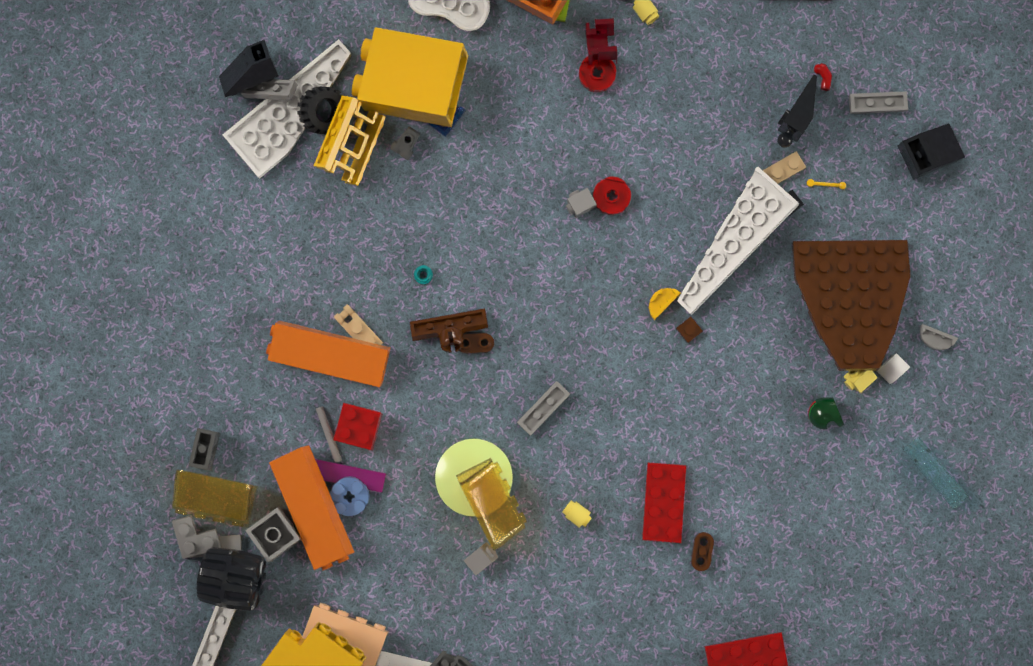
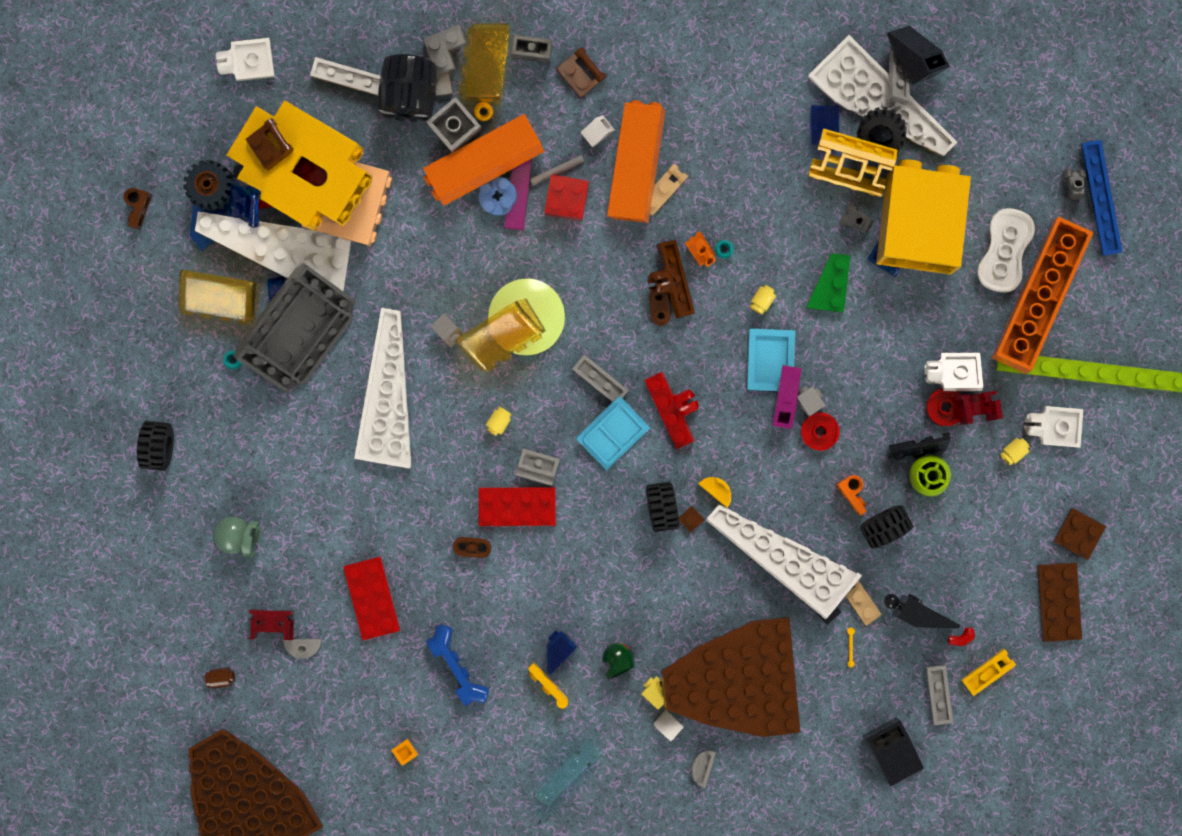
camera: 85 degrees right, 5 degrees up
(237, 406) = (576, 76): none -> reddish brown plate
(266, 499) = (487, 116): none -> yellow plate
(293, 390) = (597, 130): none -> white brick
(303, 167) = (823, 117): none -> clear blue plate
(422, 297) = (700, 250): none -> orange hips
(469, 172) = (832, 285): none -> green wing
(476, 240) = (762, 299): none -> light yellow brick
(537, 237) = (766, 355): none -> medium azure piece
(560, 629) = (384, 418): none -> white wing
(564, 59) = (955, 372): none -> white plate
(576, 225) = (786, 397): none -> magenta slope
(578, 338) = (673, 408): none -> red plate
(597, 400) = (612, 433): none -> medium azure piece
(625, 478) = (537, 466): none -> light grey plate
(634, 92) = (926, 446): none -> black wing
(658, 81) = (943, 475): none -> lime wheel
(676, 171) = (857, 503): none -> orange plate
(676, 355) = (662, 506): none -> black tyre
(711, 138) = (886, 526): none -> black tyre
(799, 592) = (467, 691): none -> blue plate
(810, 471) = (559, 649): none -> clear blue slope
(846, 486) = (548, 685): none -> yellow plate
(859, 54) = (988, 672): none -> yellow plate
(904, 637) = (404, 752): none -> light orange plate

